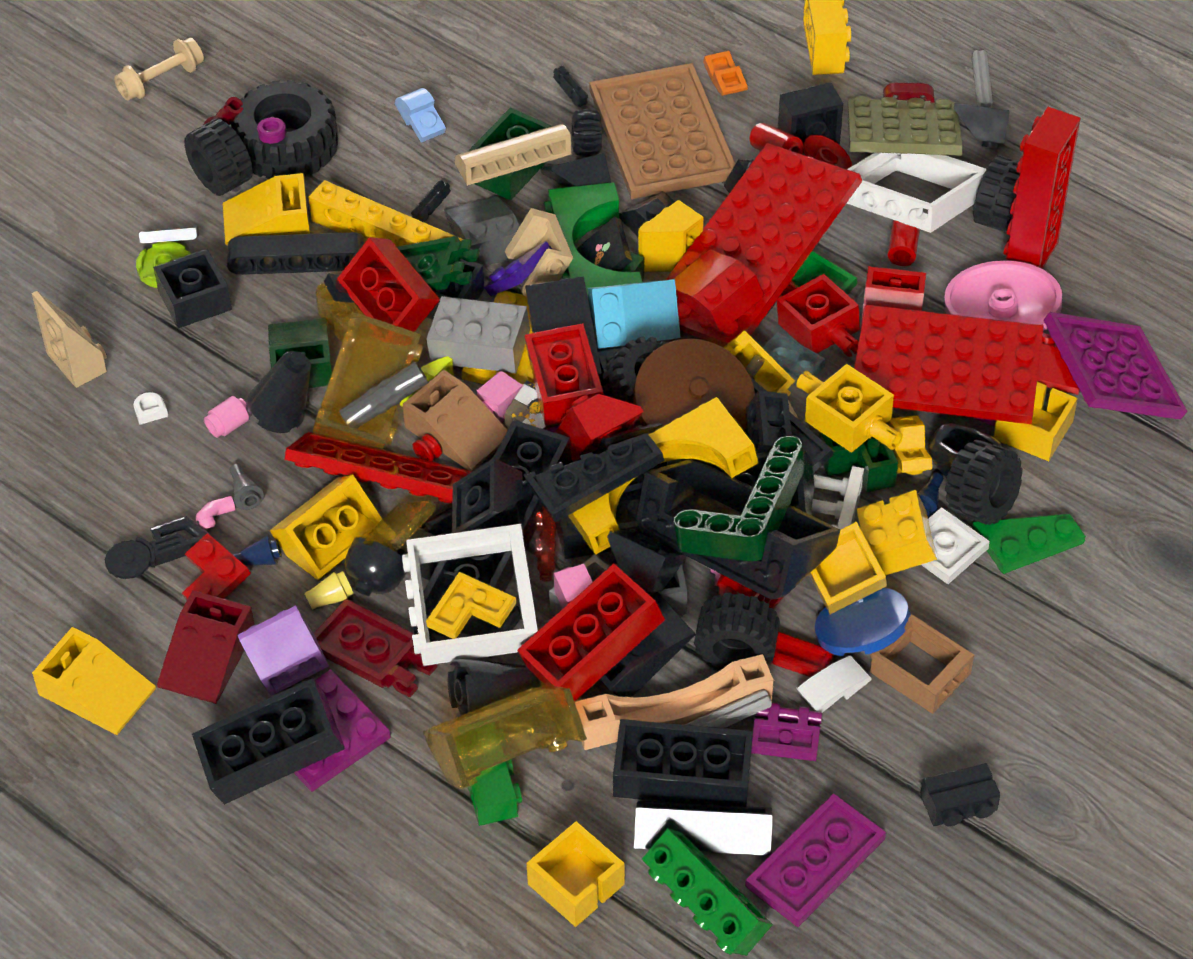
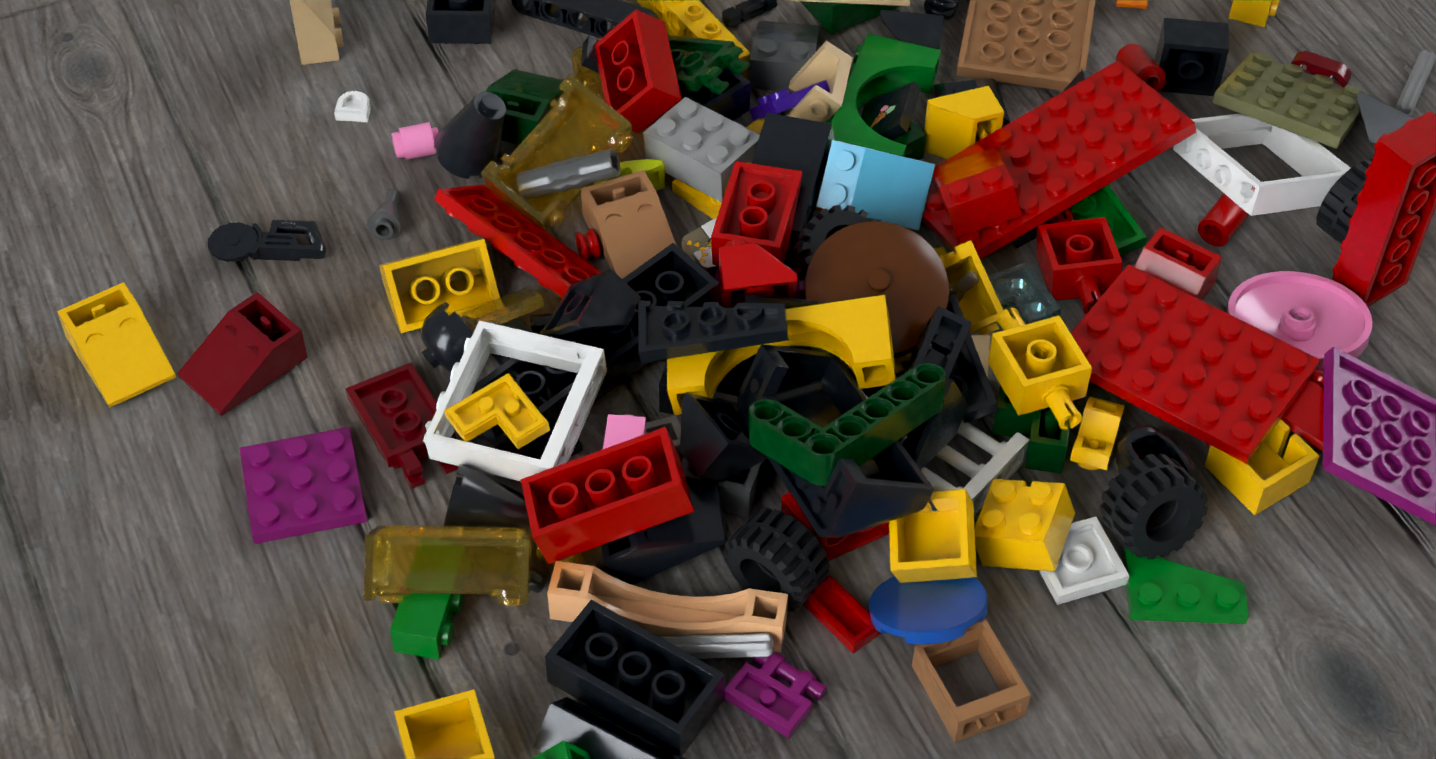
camera: 25 degrees right, 0 degrees up
(212, 509) = (345, 224): bright pink arm -> none
(220, 569) = (310, 284): red plate -> none
(261, 552) = (360, 284): dark blue cone -> none
(268, 741) = (228, 471): black brick -> none
(283, 650) = (306, 386): slope -> none
(329, 591) = (399, 348): light yellow cone -> none
(499, 393) = (689, 215): bright pink brick -> none
(545, 545) = (639, 386): clear red plate -> none
(826, 150) = (1190, 96): red dish -> none
(832, 683) = (859, 659): white slope -> none
(930, 493) = (1087, 500): dark blue cone -> none

